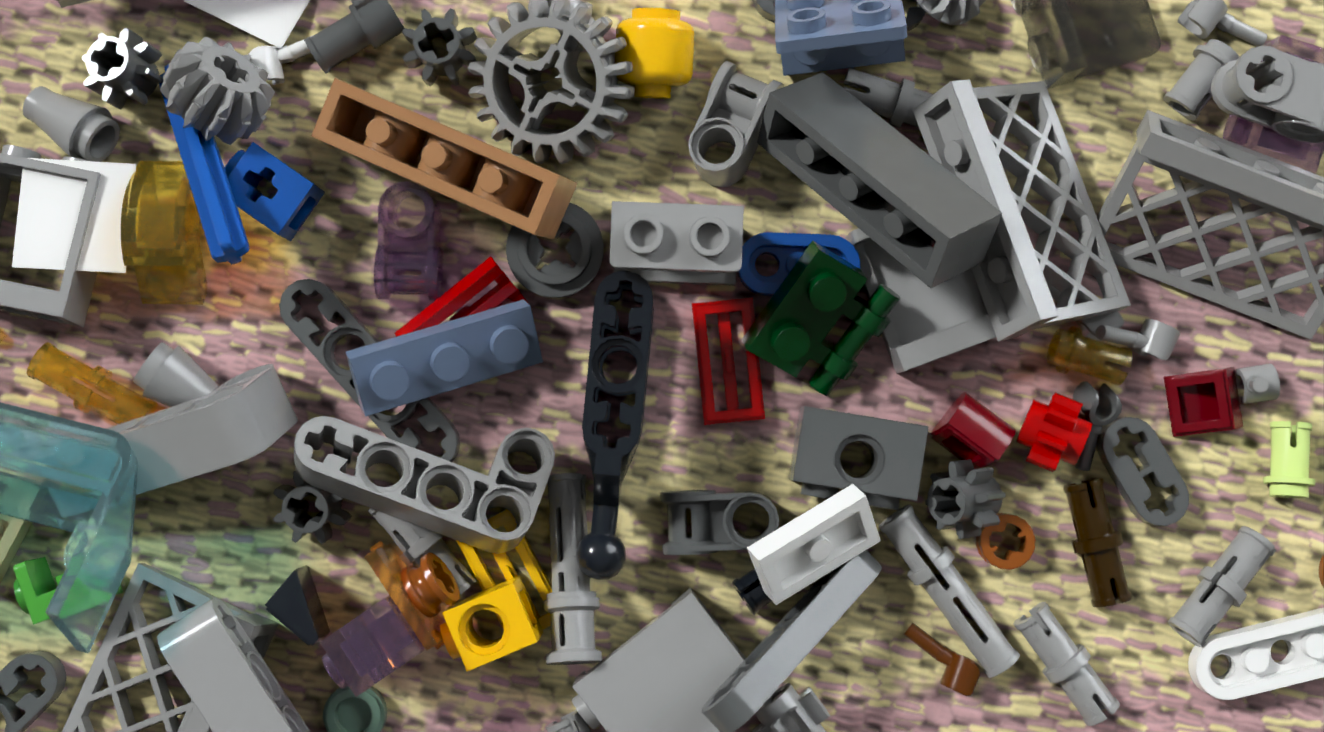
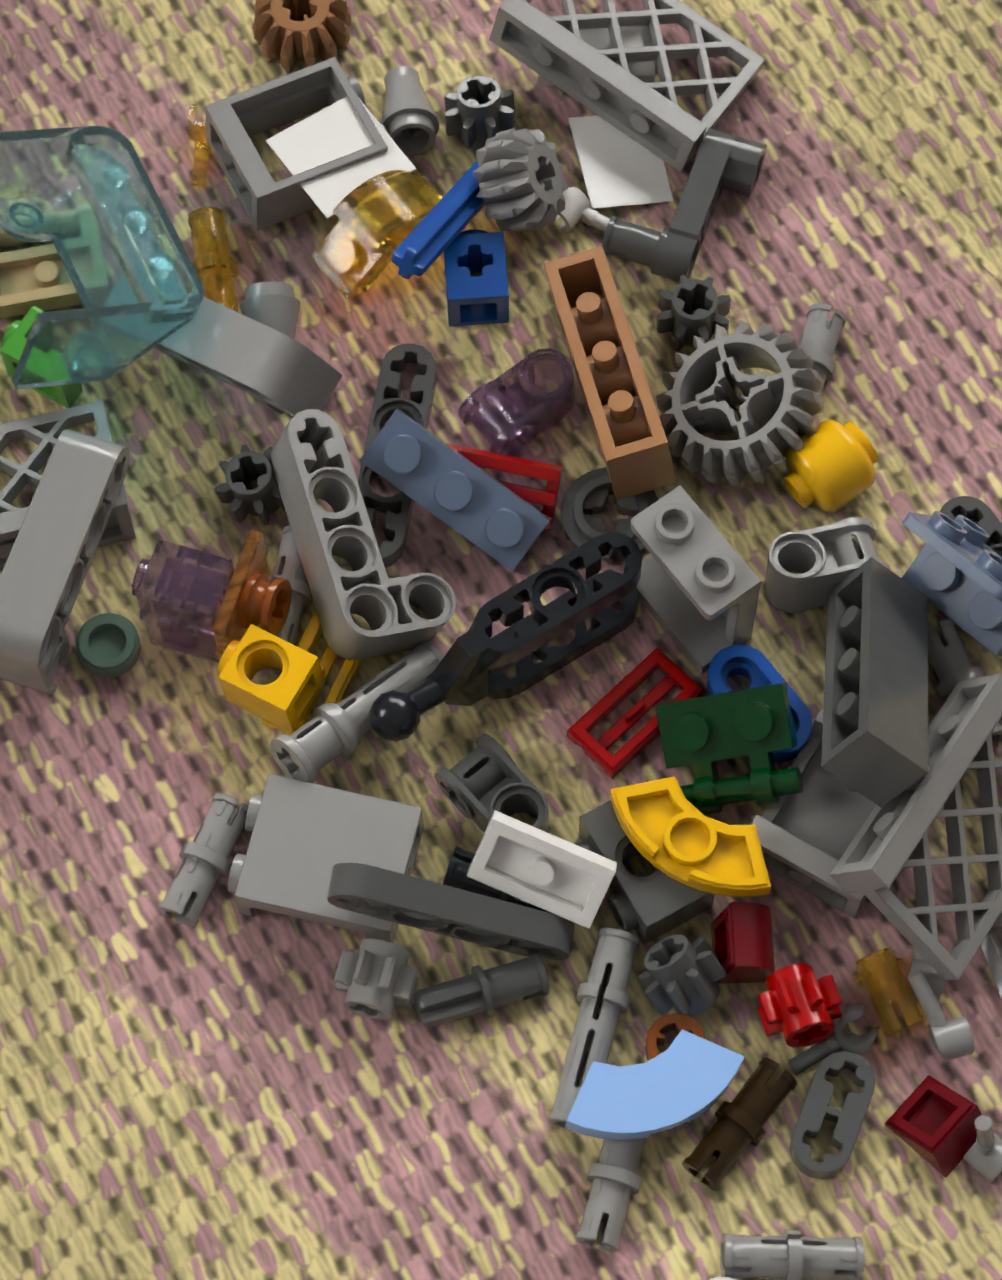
camera: 50 degrees right, 20 degrees down
(299, 607) = (169, 521): black slope -> none
(856, 652) = (482, 991): none -> dark grey axle
(881, 420) = (689, 844): none -> yellow tile
(960, 673) = (533, 1095): reddish brown hand -> none
(1042, 593) = (654, 1094): none -> light blue tile
(1289, 462) = (949, 1232): yellowish green pin -> none

